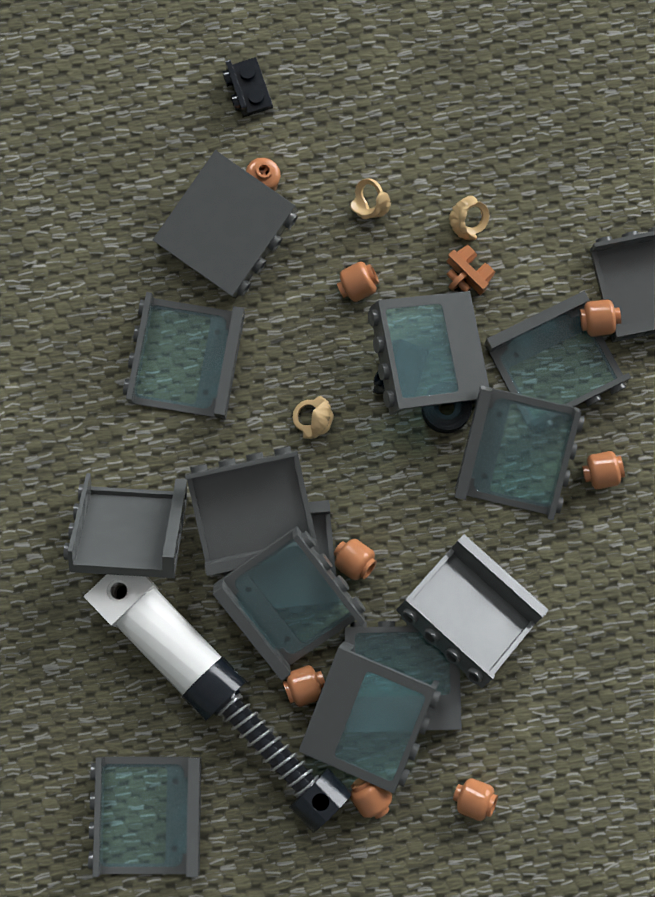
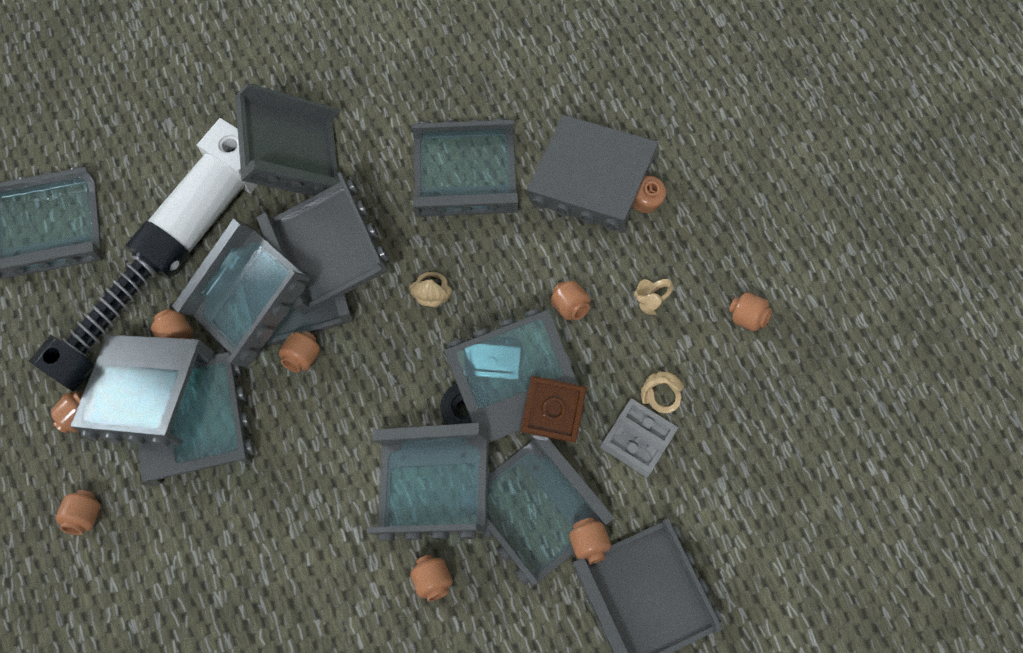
camera: 80 degrees right, 10 degrees down
(248, 86) = (732, 167): black bracket -> none
(407, 113) = (750, 311): none -> nougat head
(460, 263) = (615, 392): nougat hips -> none
(472, 611) = (258, 467): panel -> none
(473, 321) = (553, 409): none -> reddish brown plate
(508, 251) = (639, 437): none -> light grey slope

